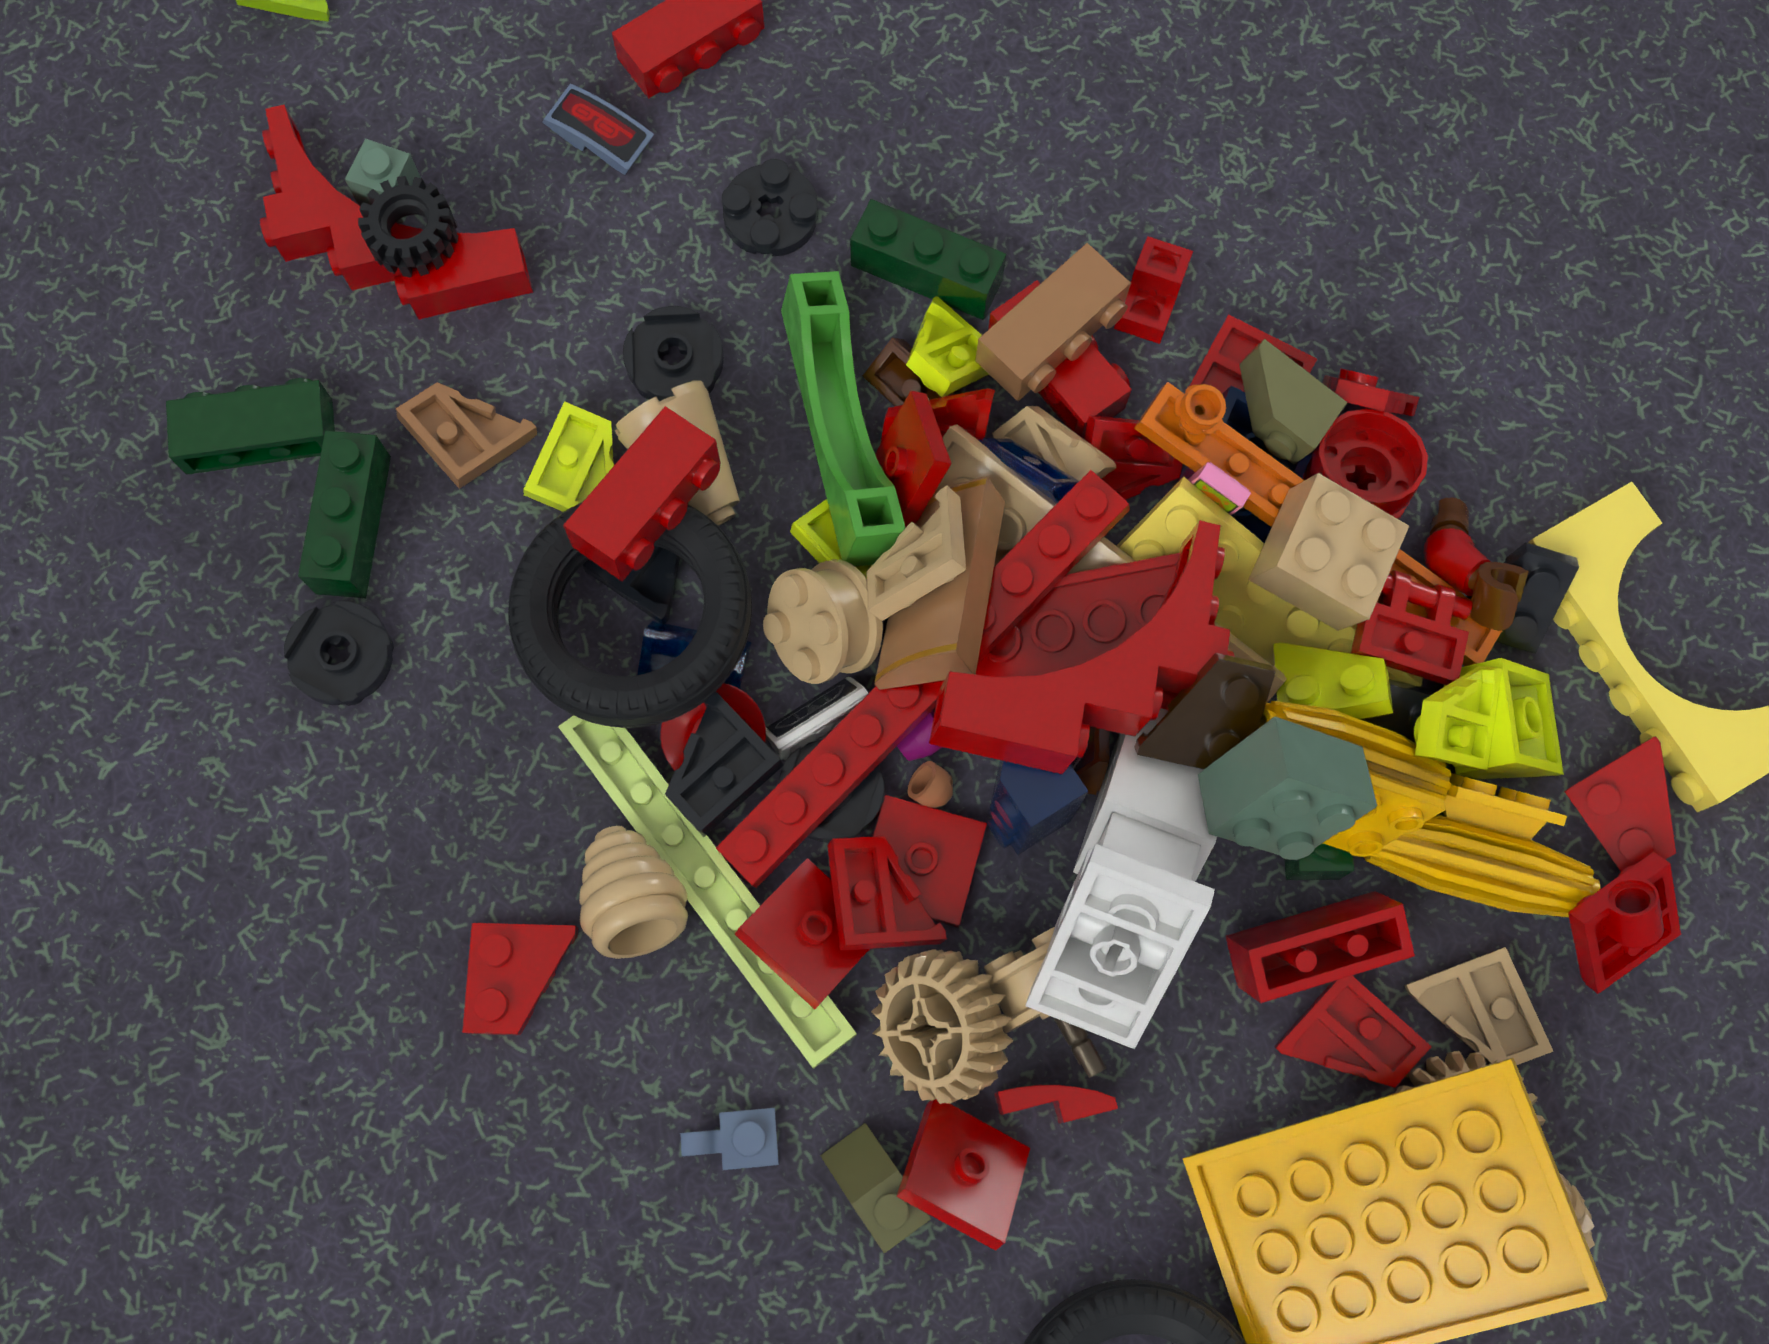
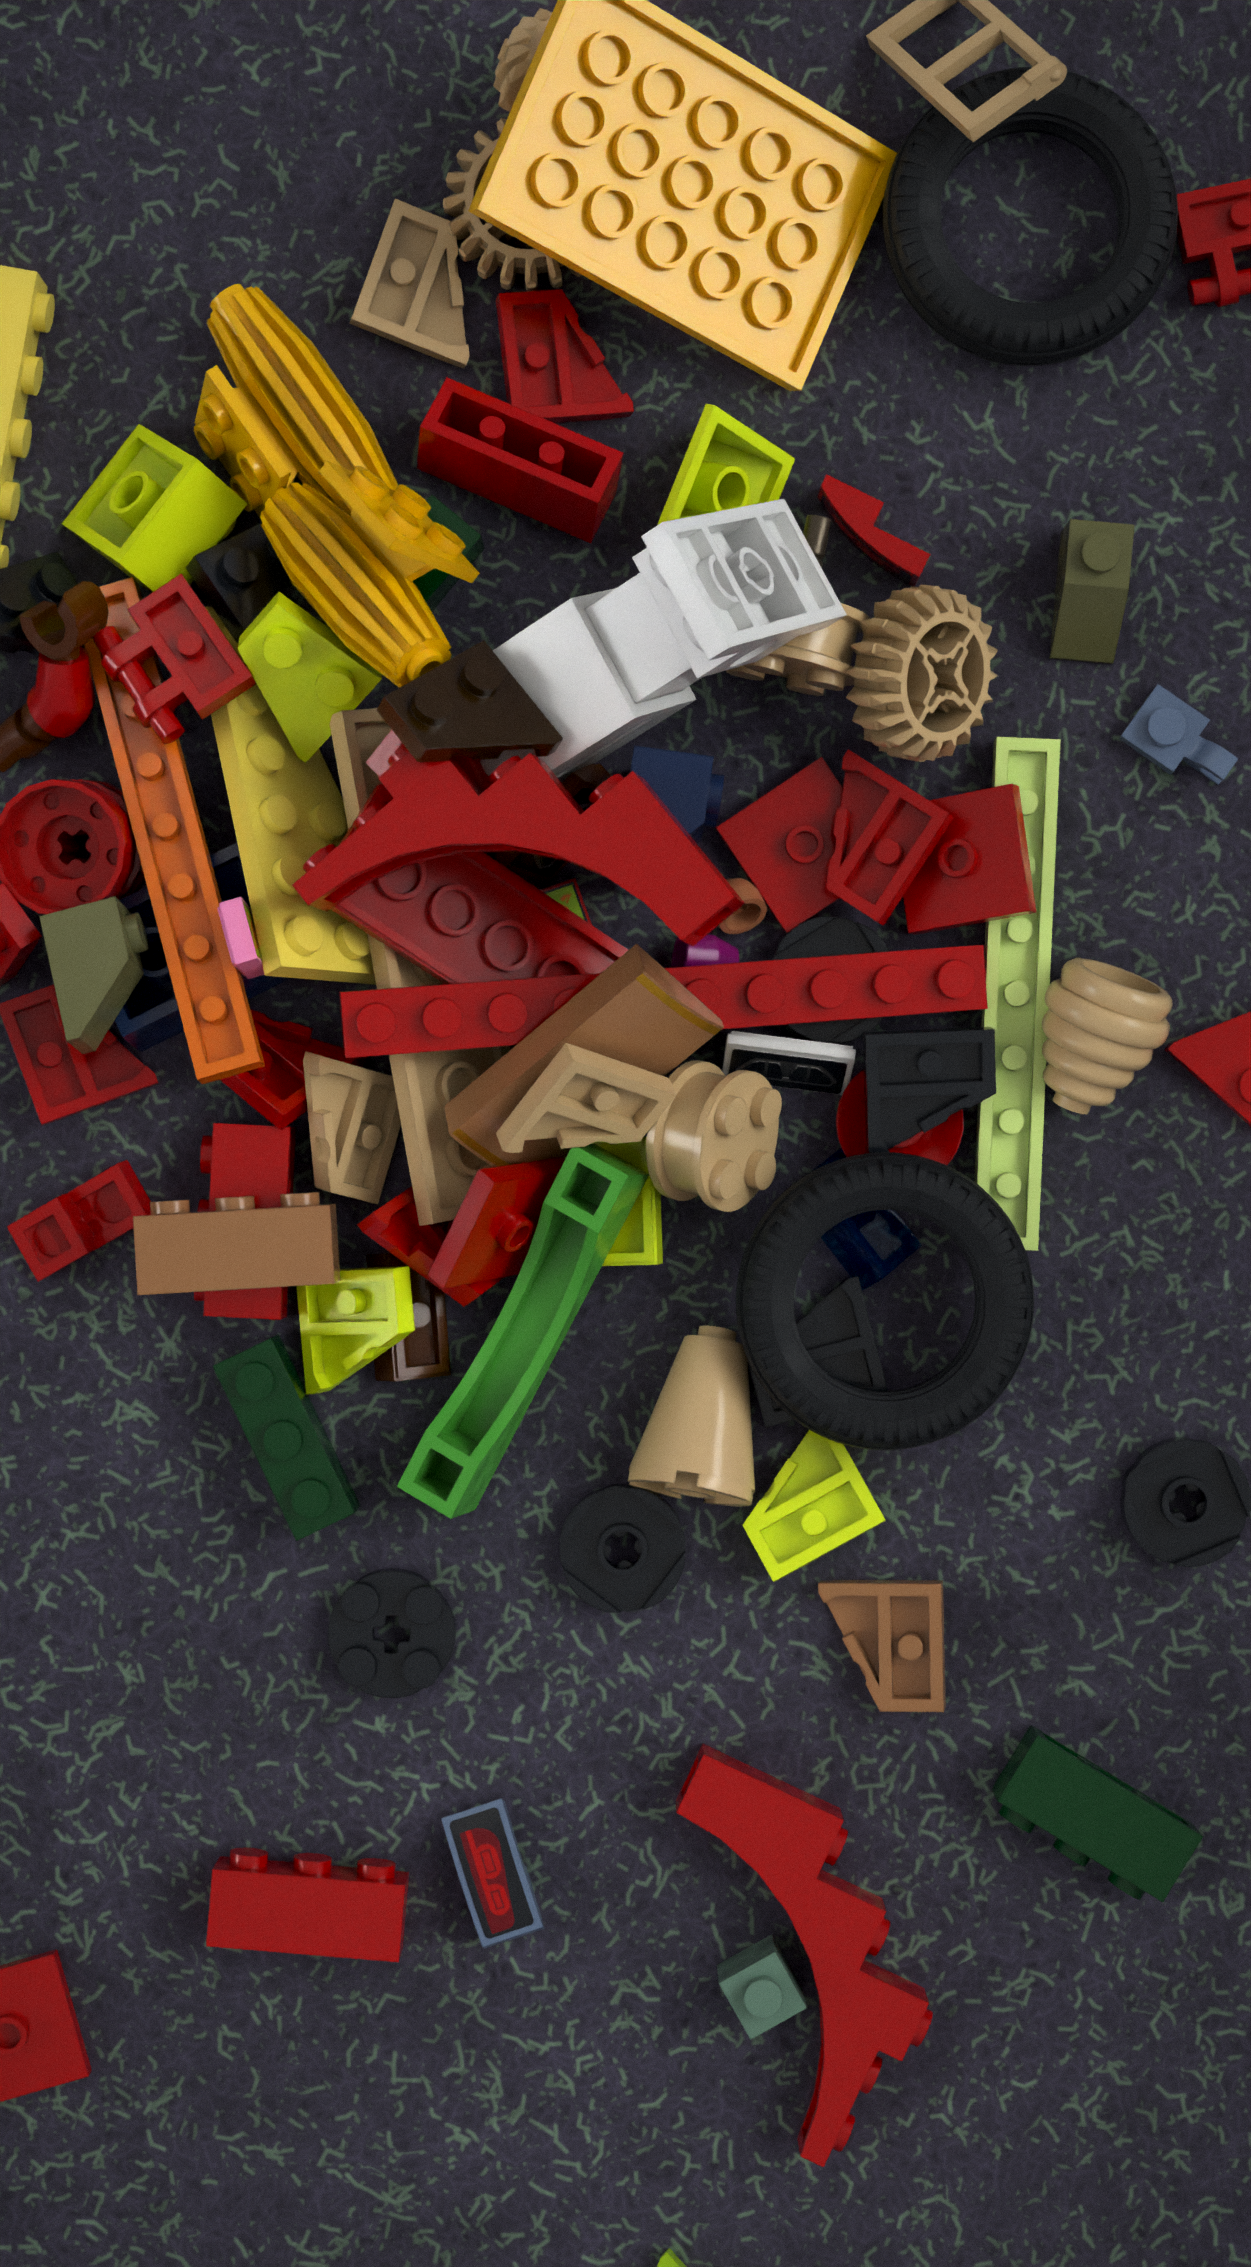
camera: 140 degrees left, 15 degrees up
(345, 514) = (1075, 1638): dark green brick -> none
(401, 202) = (794, 1931): black tyre -> none
(644, 494) = (792, 1383): red brick -> none
(964, 1173) = (1006, 534): red plate -> none
(1032, 468) = (383, 1121): clear blue slope -> none
(1180, 1048) = (726, 469): none -> neon yellow slope
(1211, 403) = (181, 1012): orange plate -> none
(1286, 789) = (469, 587): sand green brick -> none
(1329, 552) = (198, 785): tan brick -> none
(1460, 720) = (216, 536): neon yellow wing -> none
(1625, 922) = (225, 247): red plate -> none
(1628, 805) = (116, 341): red wing -> none

